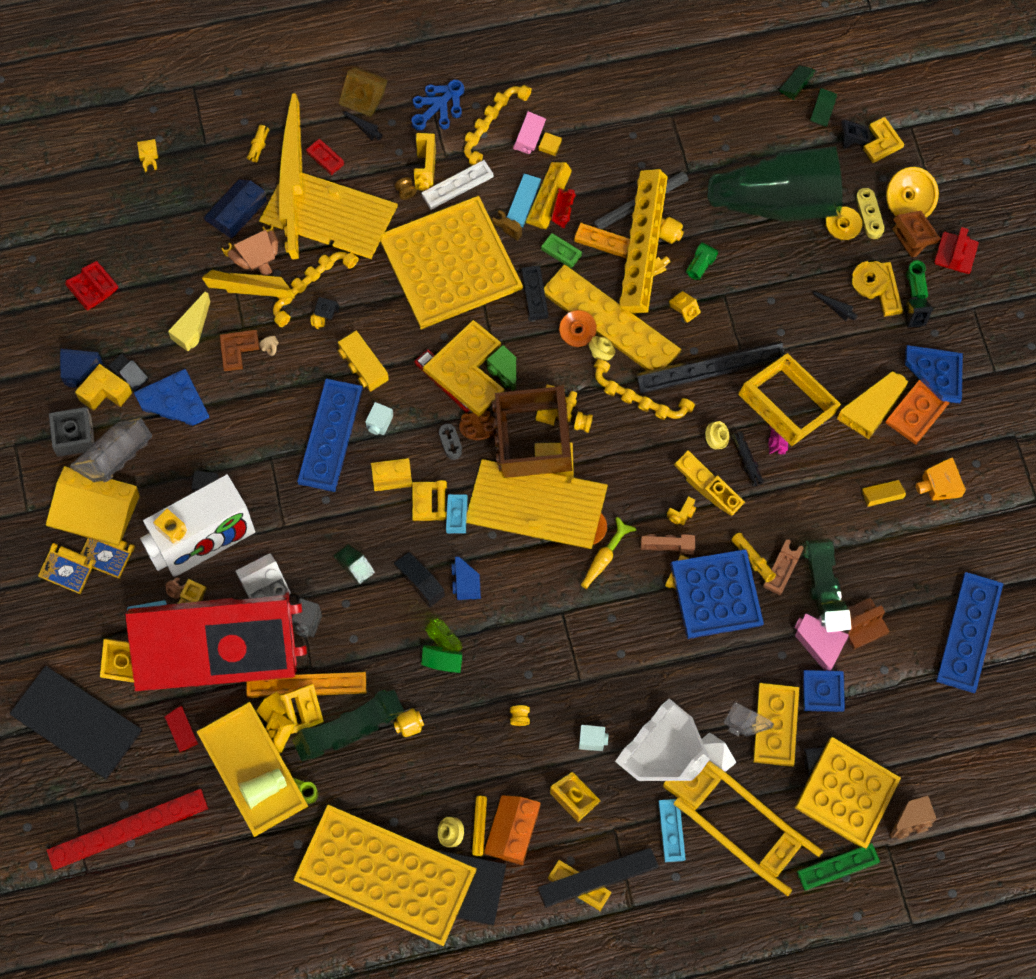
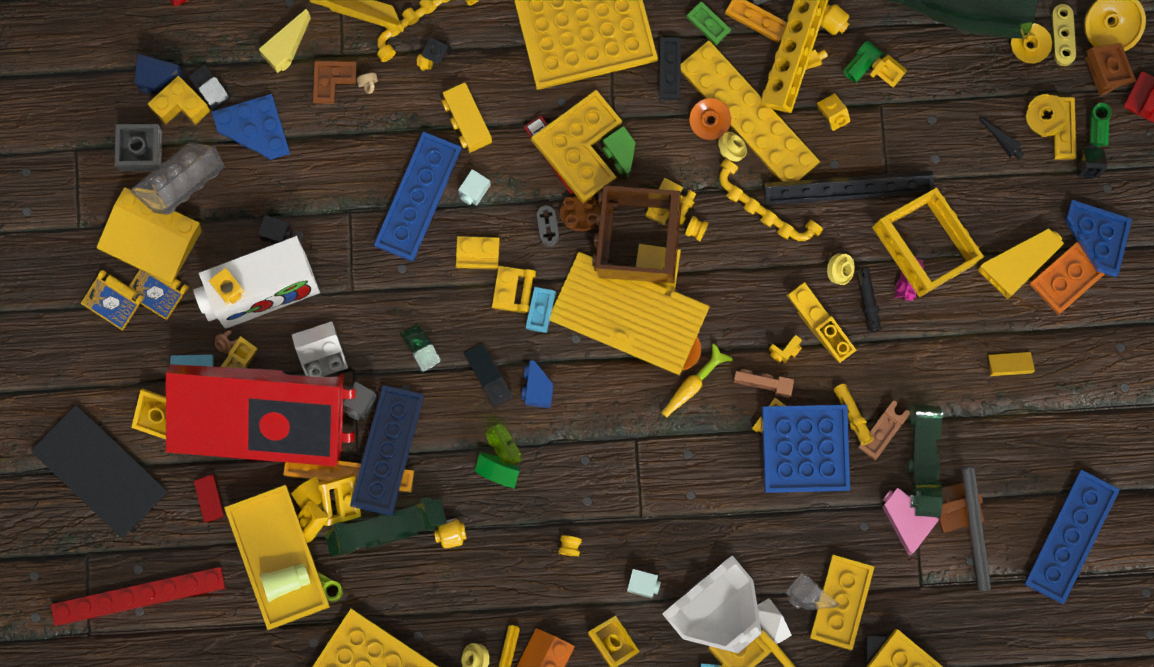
camera: 10 degrees right, 10 degrees up
(338, 658) = (387, 450): none -> dark blue plate
(725, 264) = (888, 70): none -> yellow bracket
(823, 691) = (900, 574): blue plate -> none
(884, 636) = (976, 528): none -> dark grey axle
(942, 481) = (1077, 363): light orange torso -> none

